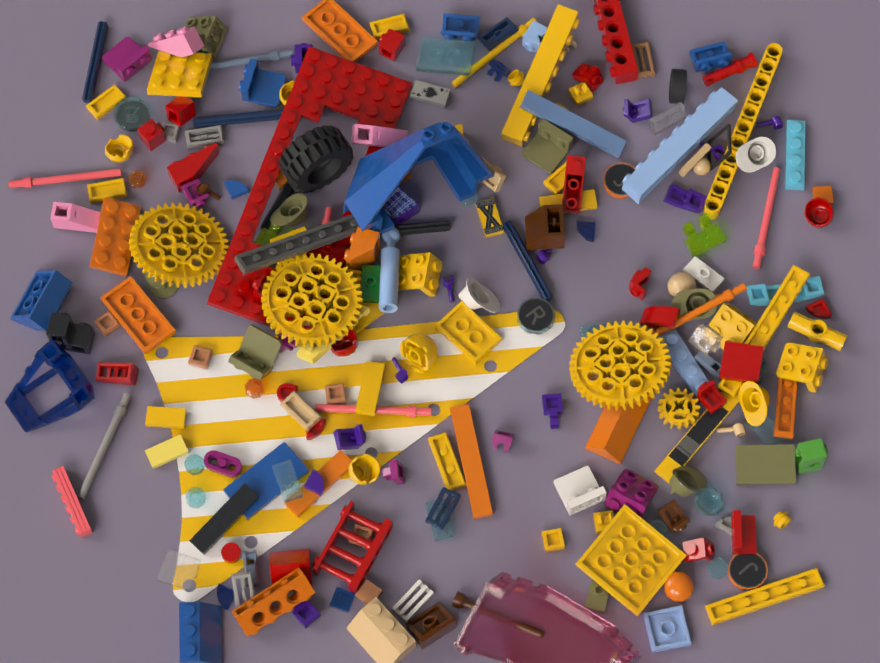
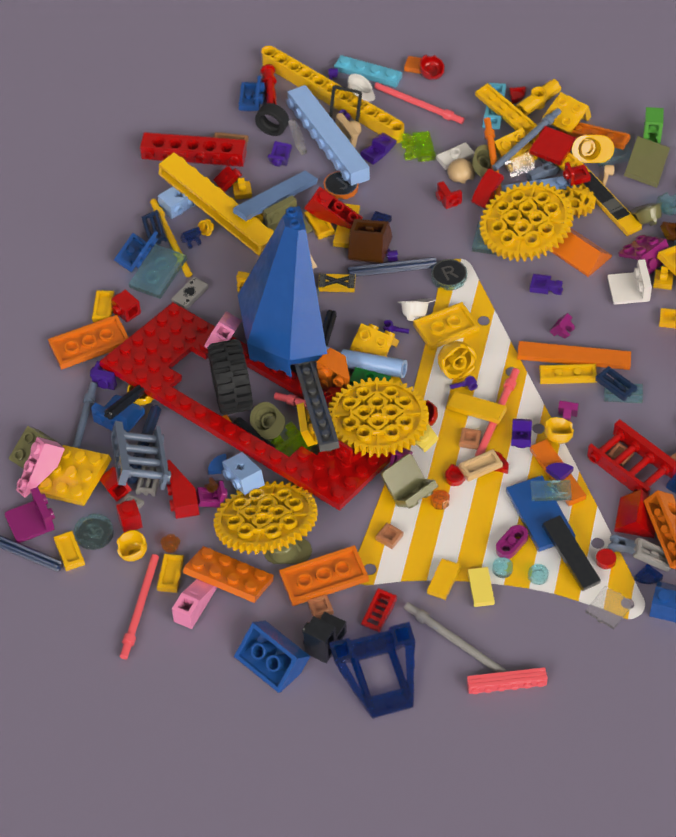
camera: 70 degrees left, 15 degrees down
(212, 99) = (122, 459): none -> sand blue fence
(224, 210) = (243, 473): none -> light blue brick
(264, 83) = (124, 402): none -> black axle
(775, 347) = (546, 121): none -> sand blue bar

